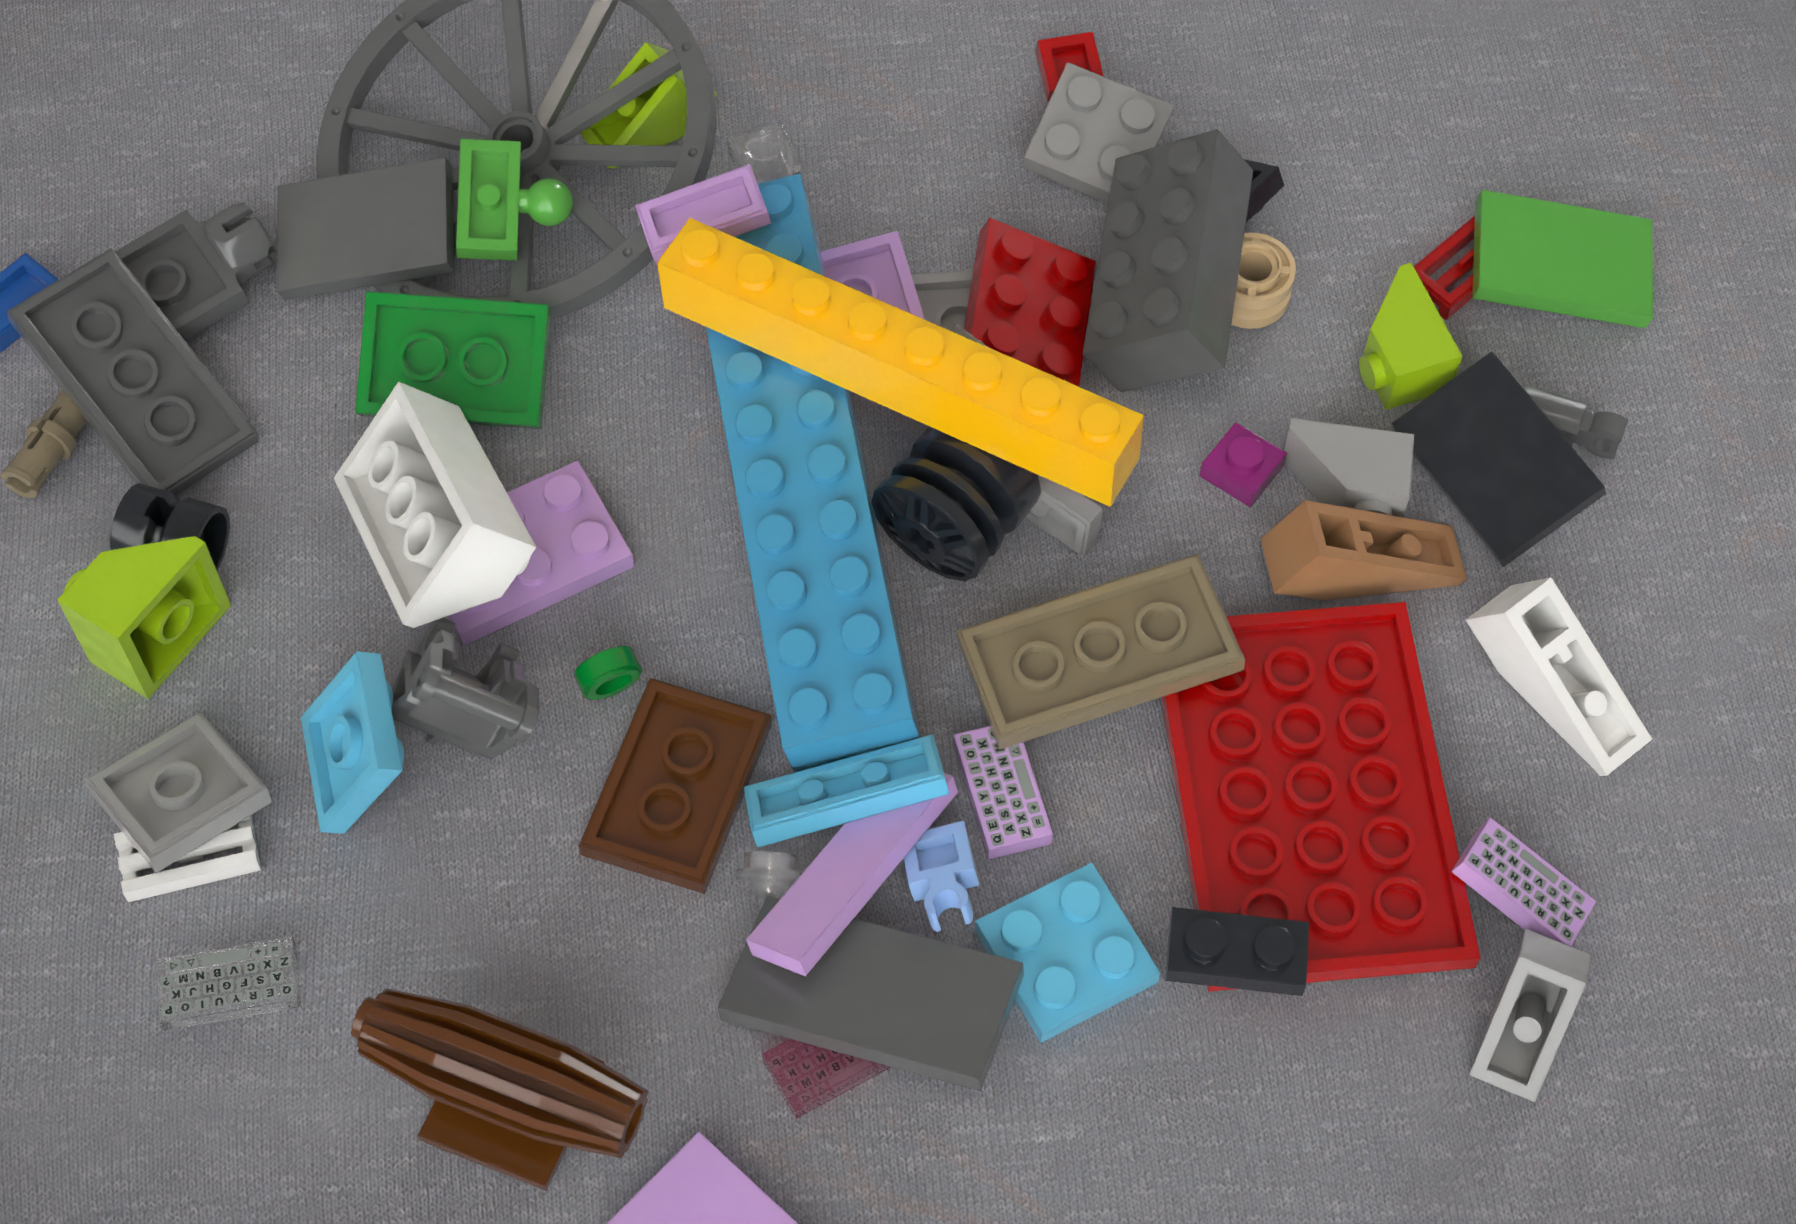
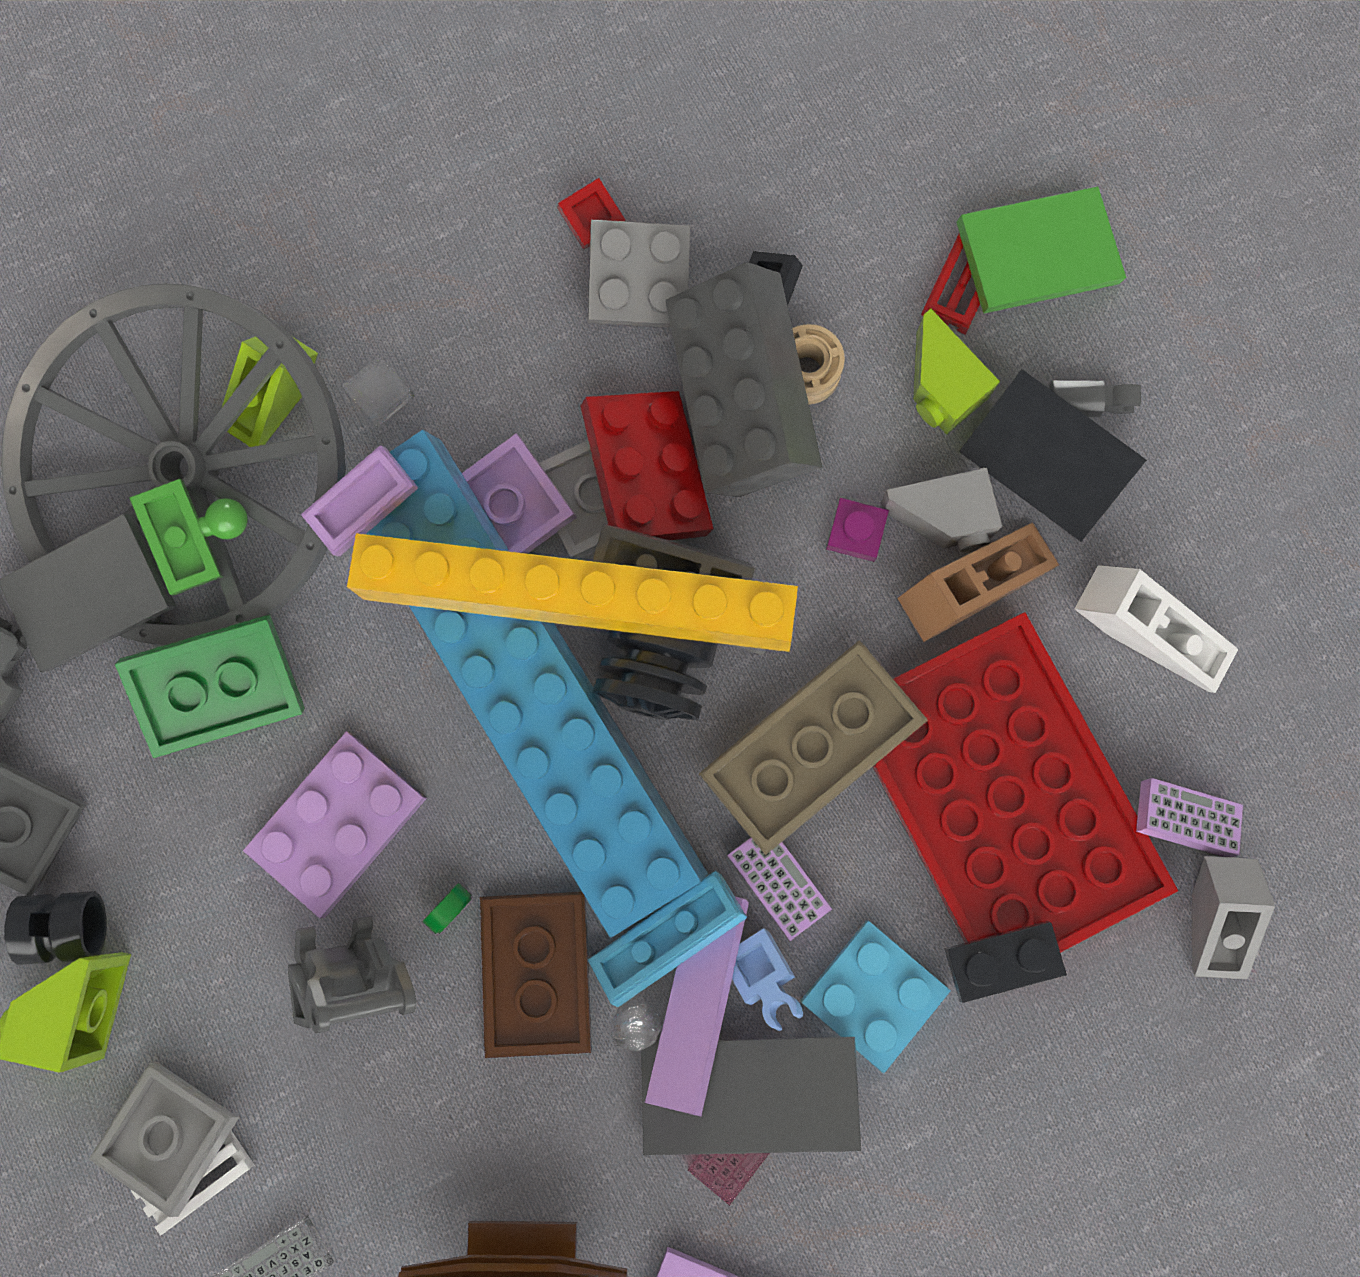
camera: 15 degrees left, 20 degrees up
(351, 742) = (279, 1056): medium azure plate -> none
(432, 509) = (254, 837): white slope -> none

